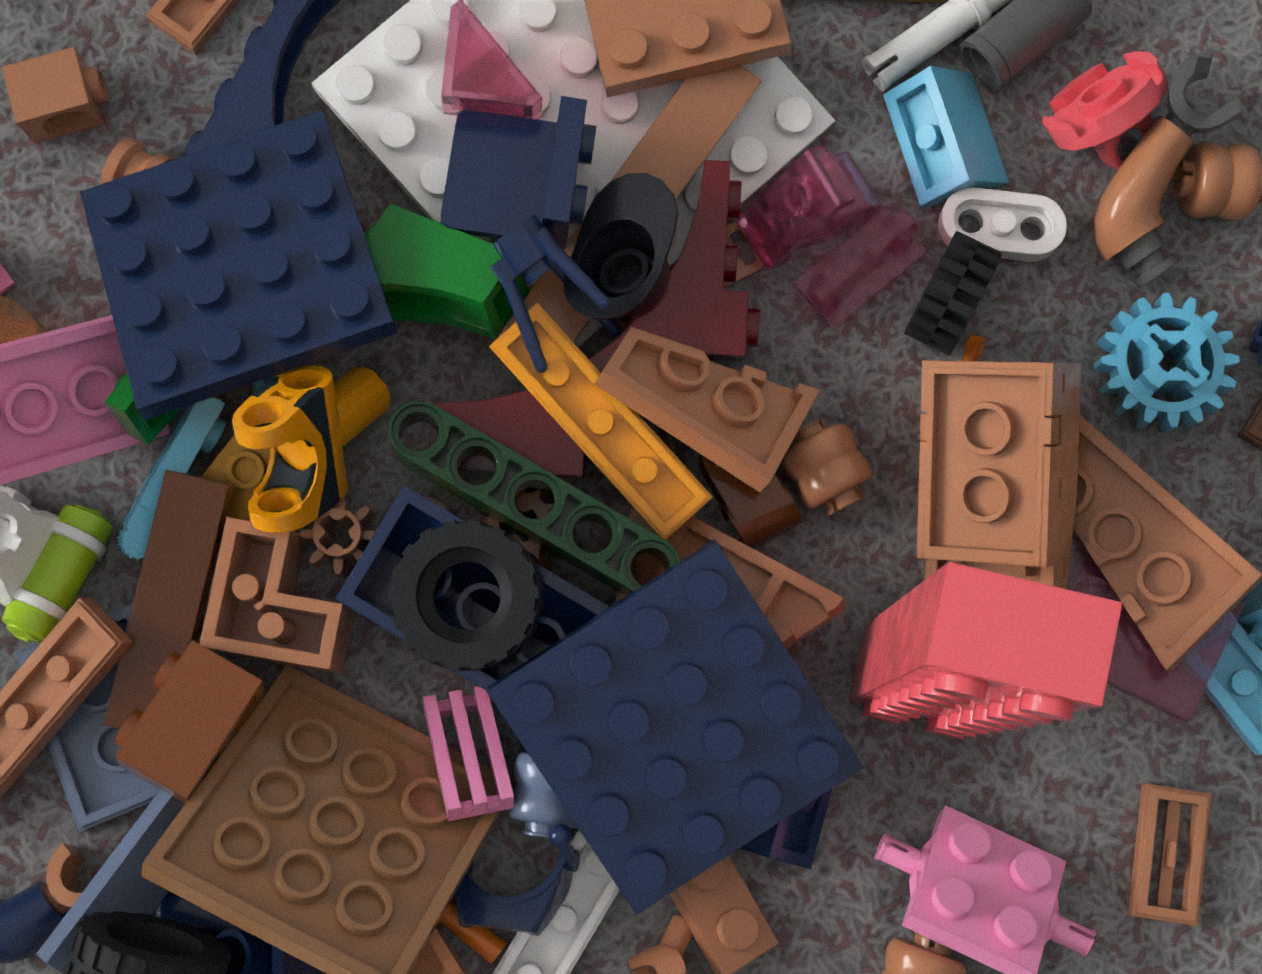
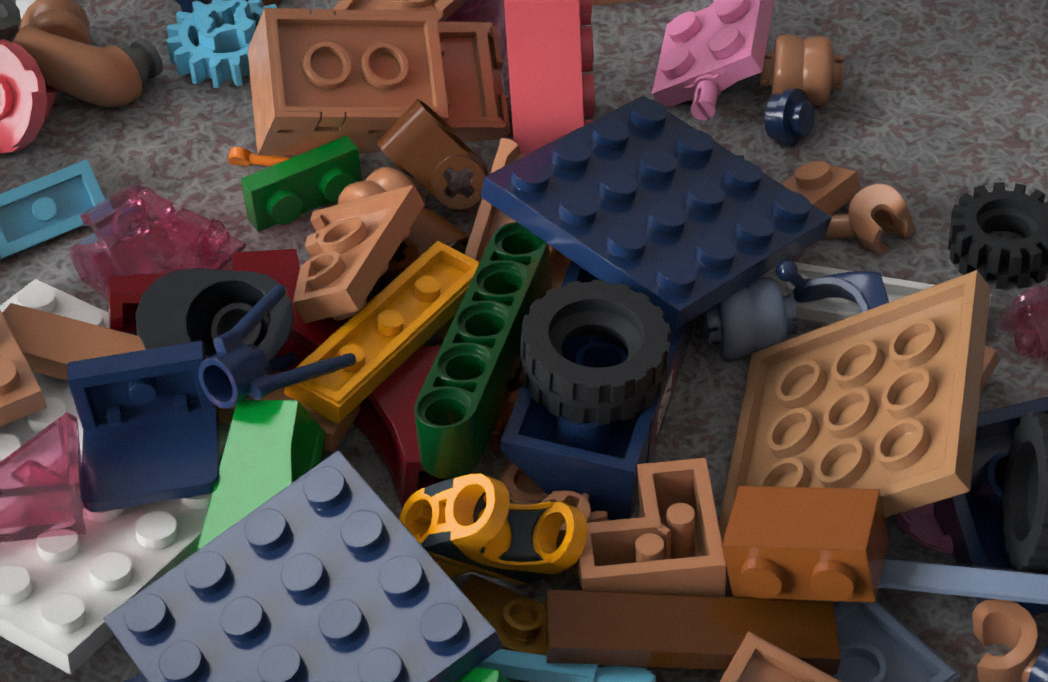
camera: 105 degrees left, 35 degrees down
(458, 707) = (740, 376): bright pink tile -> none
(853, 942) = (789, 116): none -> dark blue plate
(867, 532) = (426, 148): none -> reddish brown piece
(882, 372) = (300, 183): none -> green plate
(953, 293) = (204, 130): black tyre -> none
(1000, 221) = (120, 151): white plate -> none

